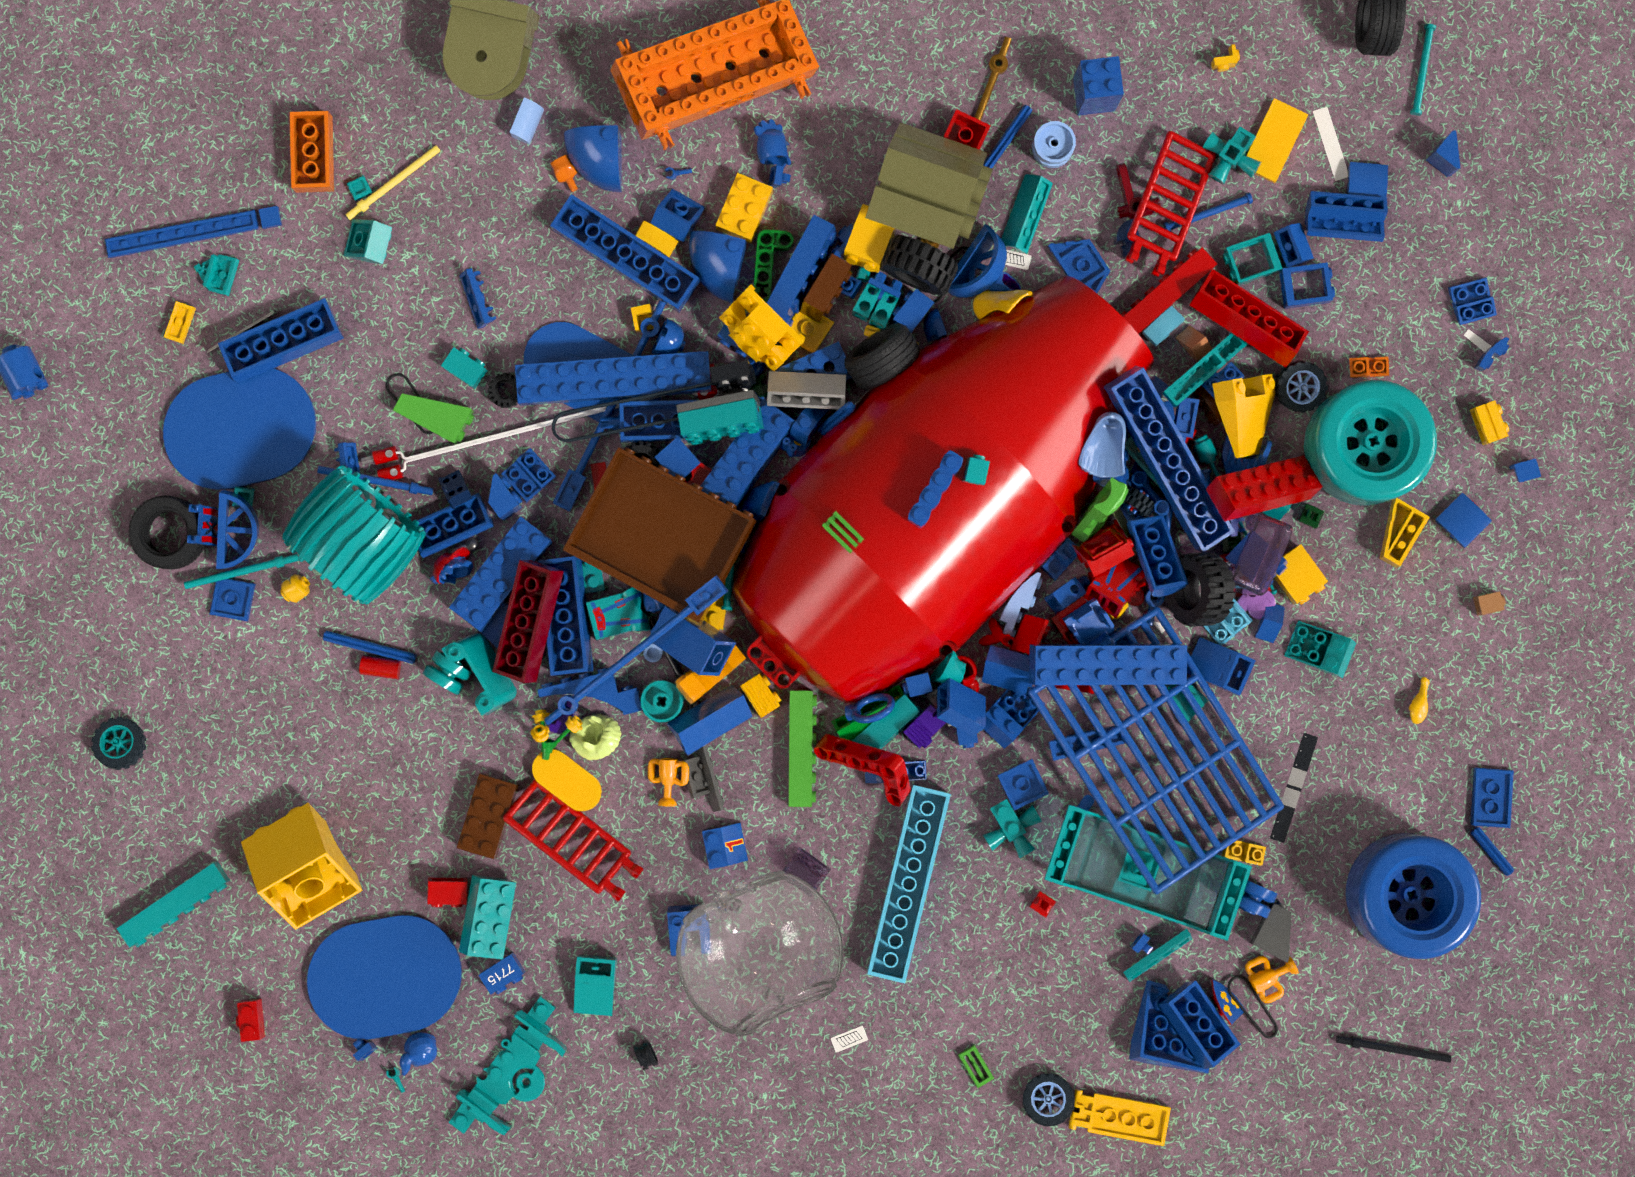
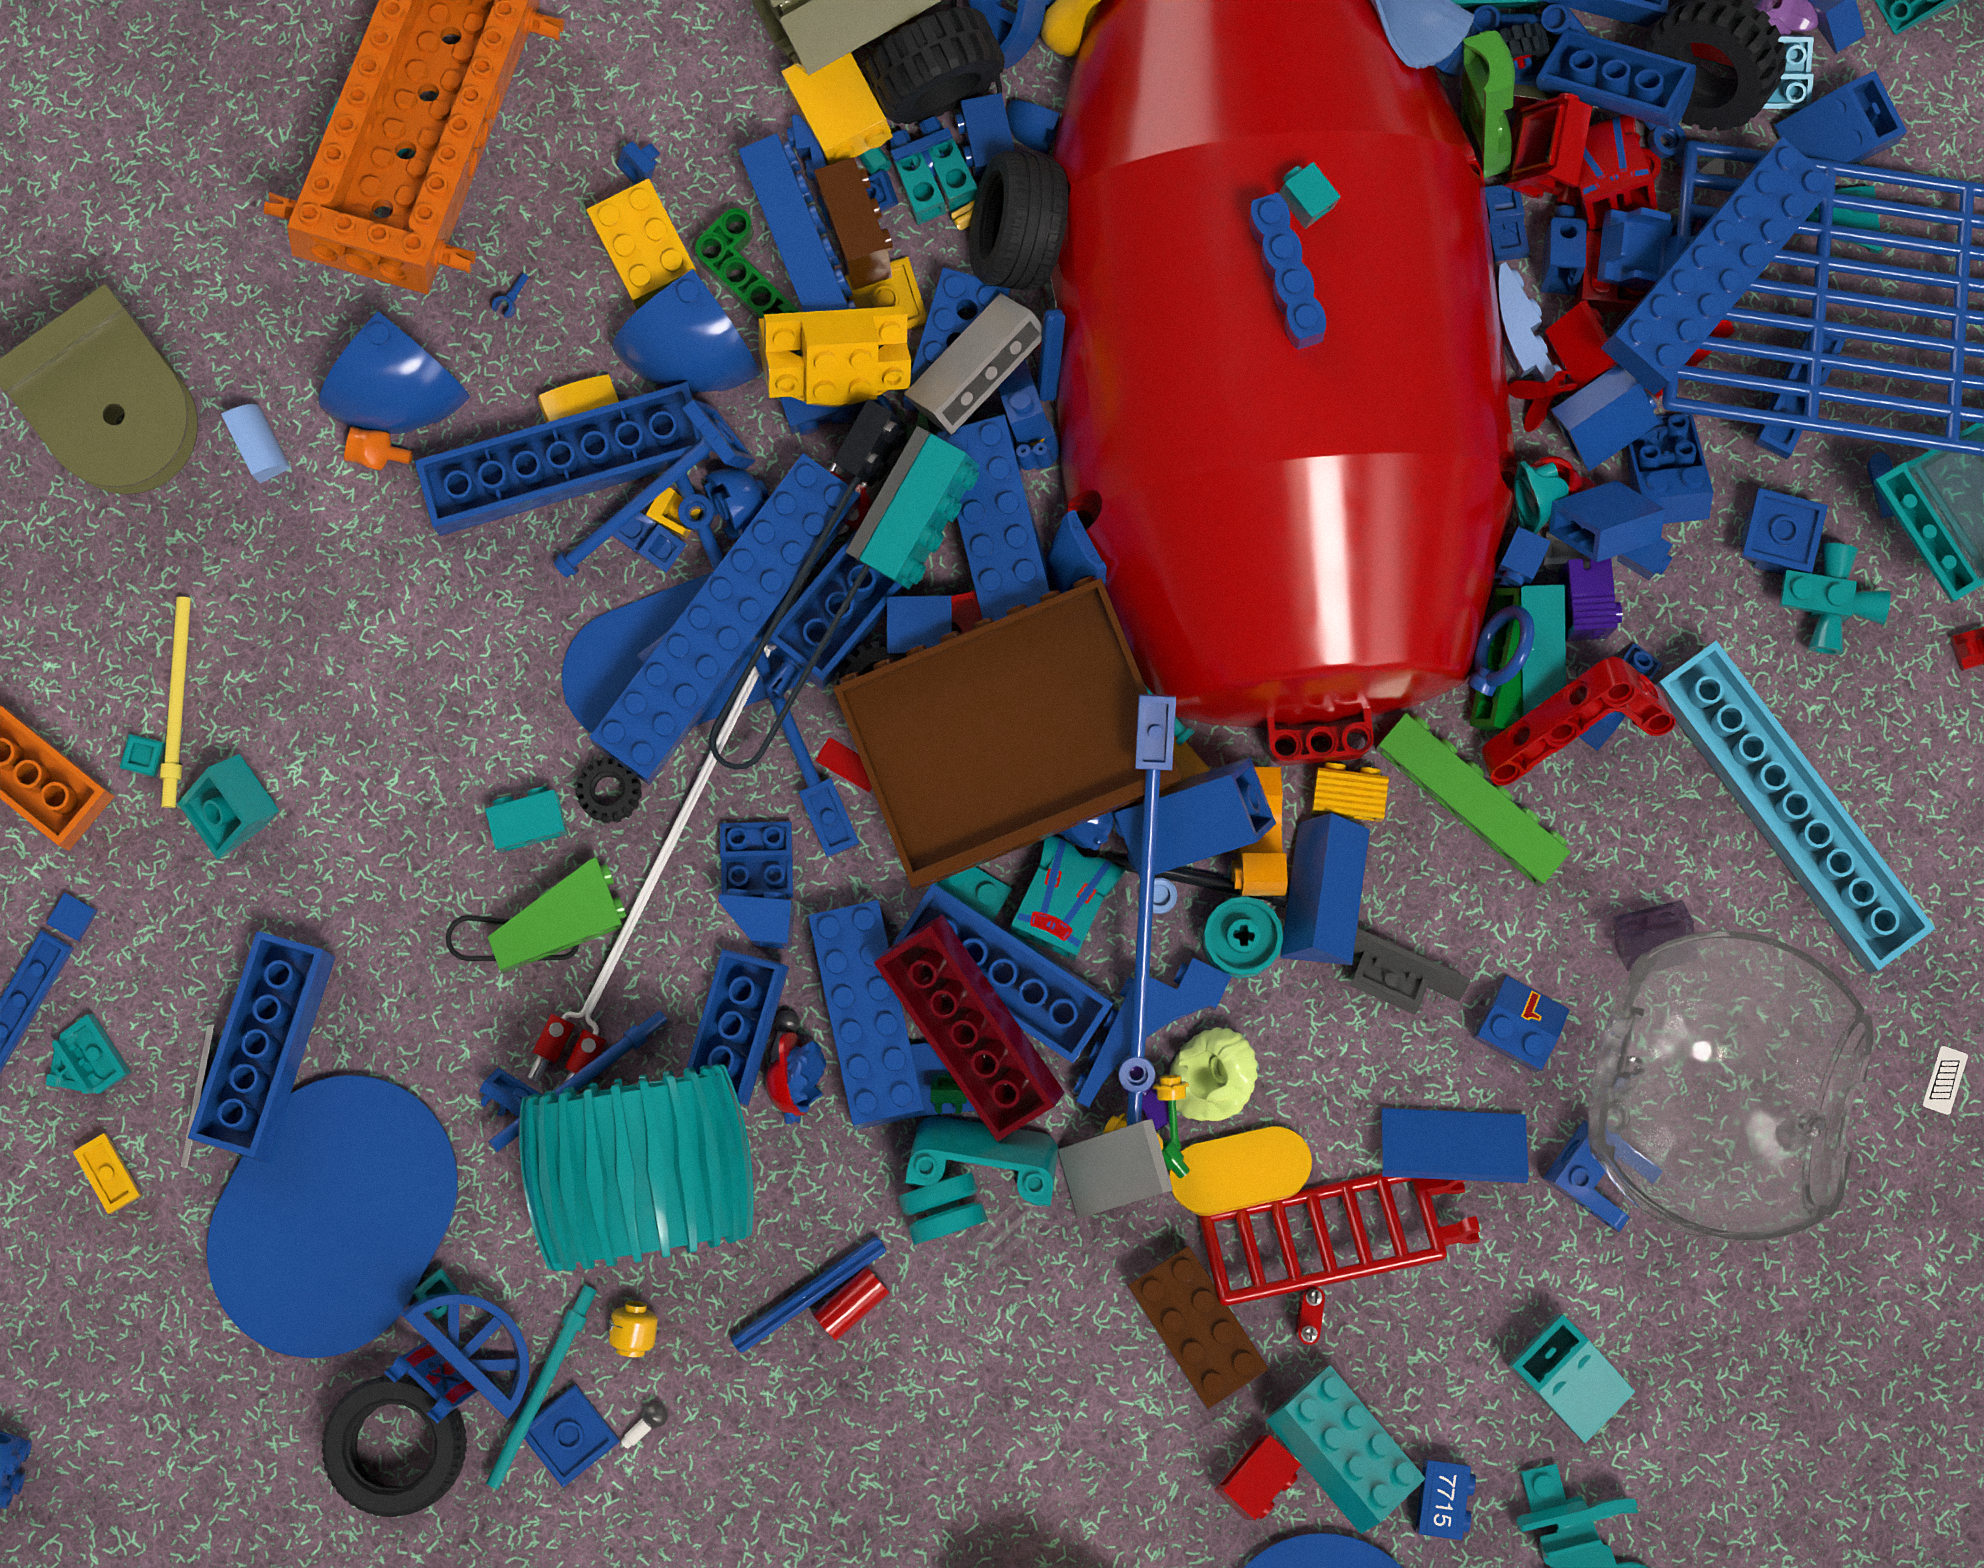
camera: 45 degrees left, 5 degrees down
(268, 626) = (653, 1417): none -> piece
(455, 489) = (688, 977): dark blue piece -> none
(476, 298) = (441, 722): blue plate -> none
(495, 633) = (946, 1090): none -> dark green tile
(520, 729) = (1115, 1169): none -> light grey tile
(530, 858) = (1310, 1316): none -> red piece
(622, 315) = (650, 541): none -> blue slope
(645, 1054) = (1733, 1388): black wheel -> none
(650, 859) = (1454, 1145): none -> blue tile
(668, 776) = (1354, 1018): light orange piece -> none
(677, 215) = (571, 344): blue slope -> none
(685, 310) = (716, 437): none -> blue tile
(771, 144) = (584, 132): blue piece -> none
(848, 526) = (1204, 457): bright green tile -> none

